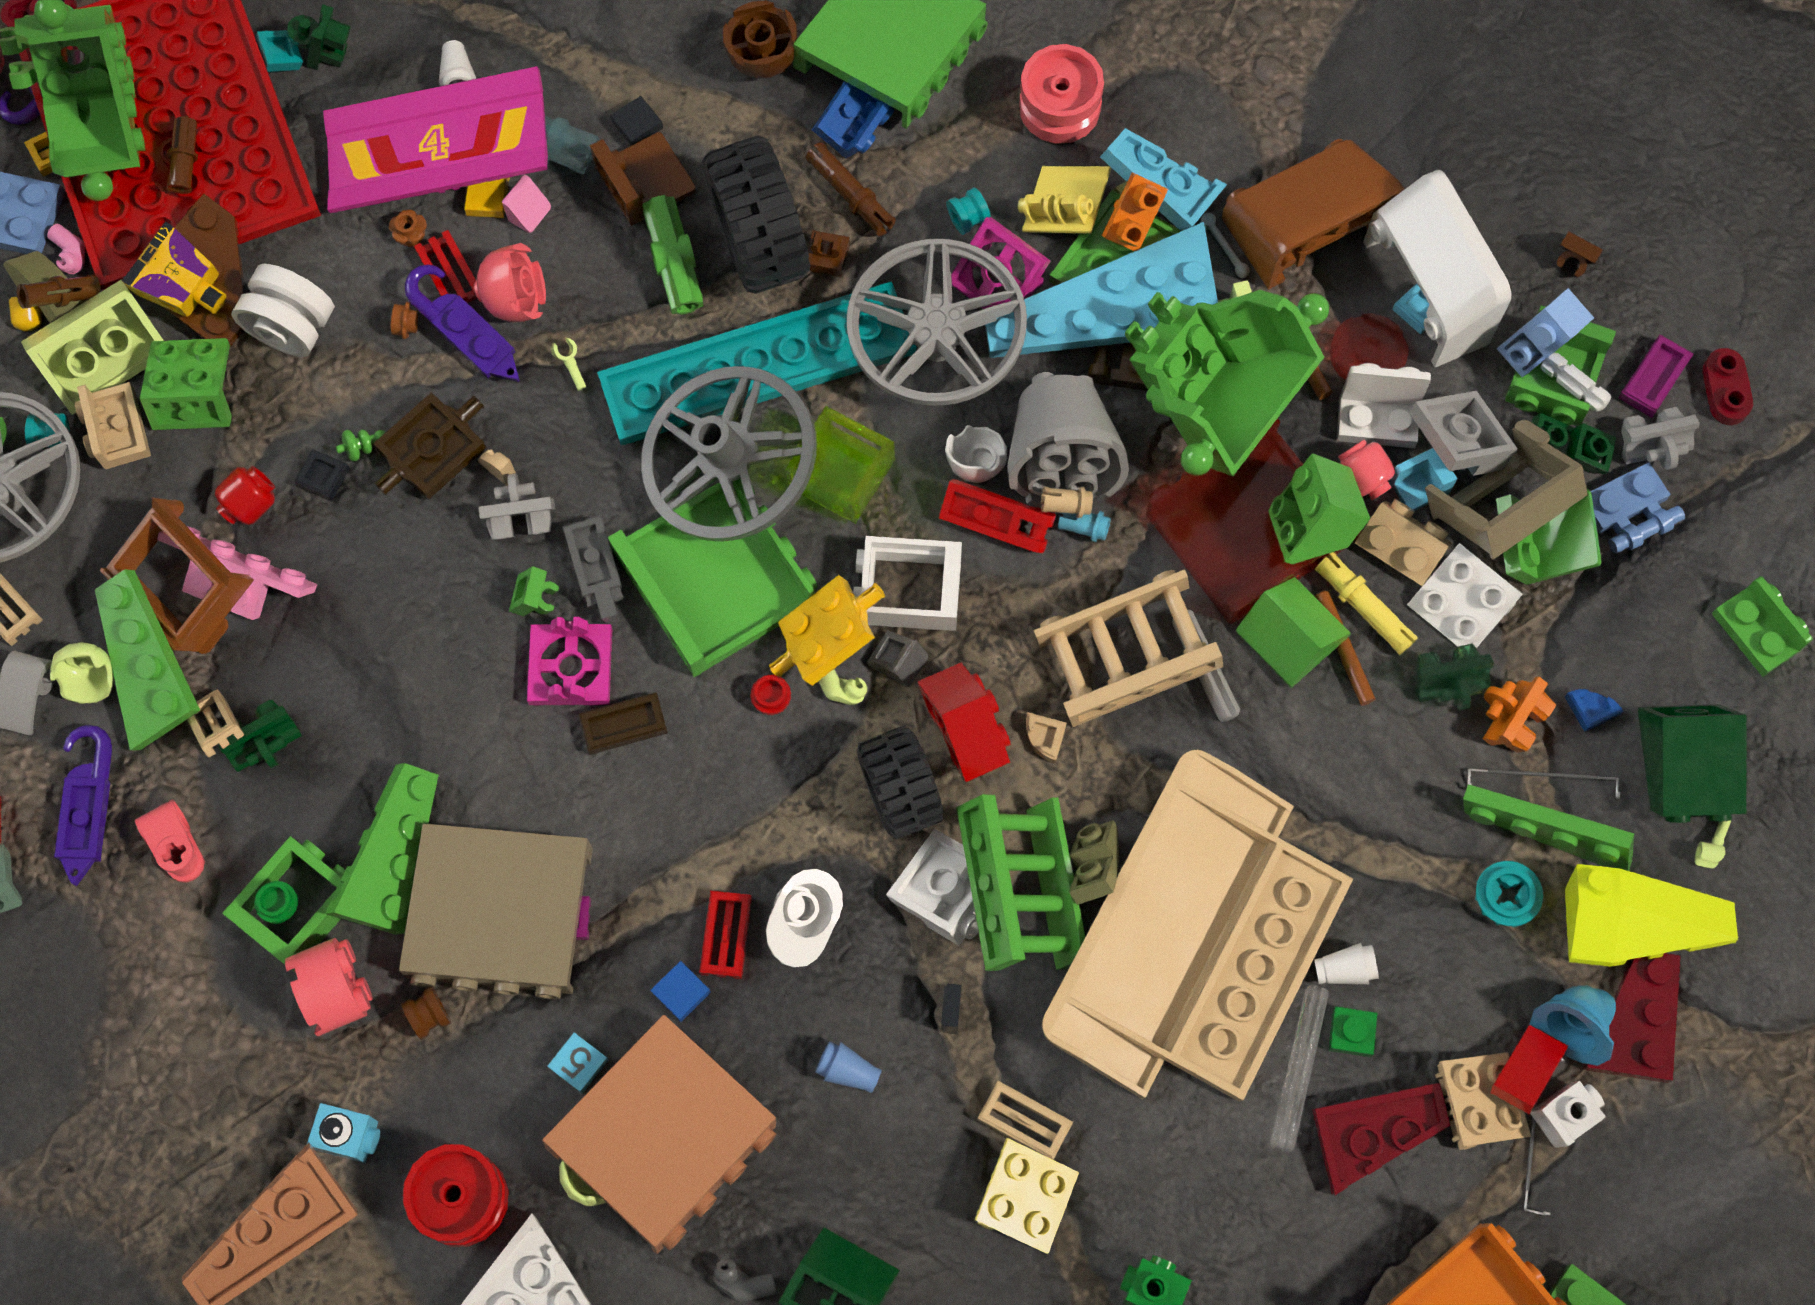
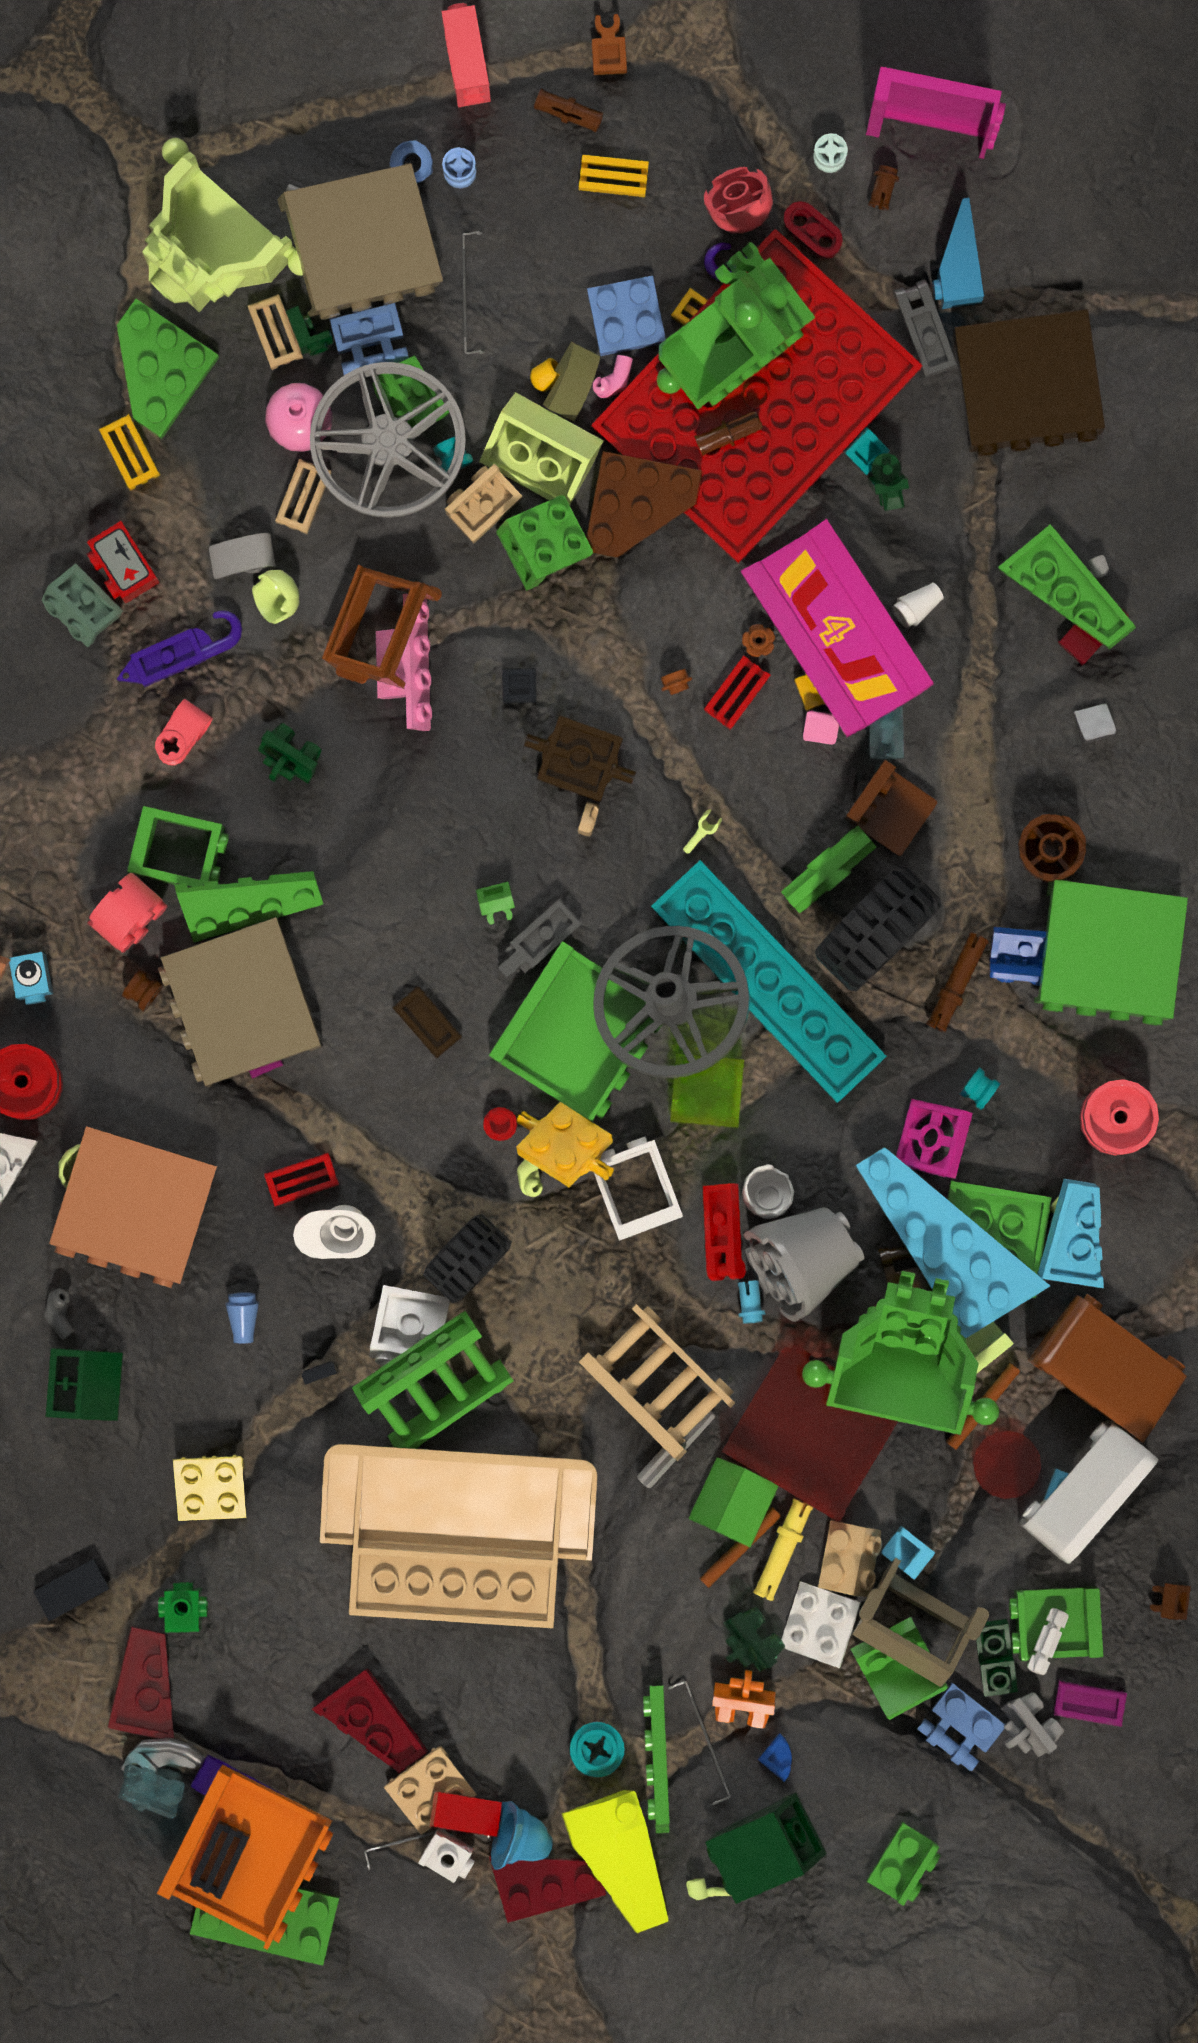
camera: 65 degrees right, 15 degrees up
(36, 294) = (567, 401): reddish brown pin -> none
(144, 668) = (298, 643): bright green wing -> none
(175, 275) = (618, 492): torso -> none
(219, 733) = (271, 733): tan tile -> none
(244, 495) = (472, 638): red head -> none
(276, 902) = (167, 843): green plate -> none
(283, 310) = (632, 588): white wheel -> none
(352, 445) = (560, 704): bright green hair -> none
(463, 327) = (690, 732): dark purple plate -> none
(499, 515) = (561, 852): light grey hips -> none
(511, 284) = (741, 753): coral cylinder -> none
(571, 694) = (424, 944): dark pink piece -> none
(578, 1063) = (158, 1118): medium azure tile -> none
(636, 121) = (940, 776): black tile -> none
(680, 991) = (244, 1166): blue tile -> none
(828, 253) = (892, 990): reddish brown tile -> none
(898, 658) = (575, 1207): flat silver slope -> none
(936, 322) = (858, 1112): light grey wheel -> none
(966, 720) = (543, 1283): red brick -> none
(992, 1103) = (262, 1491): tan tile -> none
(1045, 735) = (564, 1348): tan tile -> none
(1065, 199) = (1025, 1162): light yellow hinge -> none
(1067, 501) = (754, 1283): tan pin -> none
(1096, 861) = (480, 1430): olive slope -> none
(1134, 212) = (1026, 1228): orange hips -> none
(1242, 270) = (1033, 1331): light grey hinge -> none
(1299, 1068) = (394, 1646): clear axle -> none
(1318, 510) = (832, 1482): bright green slope -> none
(1348, 966) = (486, 1652): white cone -> none
(1353, 1031) = (439, 1674): green plate -> none
(1370, 468) = (895, 1504): coral head -> none
(1378, 405) = (951, 1496): white bracket -> none
(1464, 432) = (956, 1569): light grey plate -> none
(1545, 333) = (1070, 1602): light blue slope -> none
(1727, 383) = (1105, 1762): dark red plate -> none

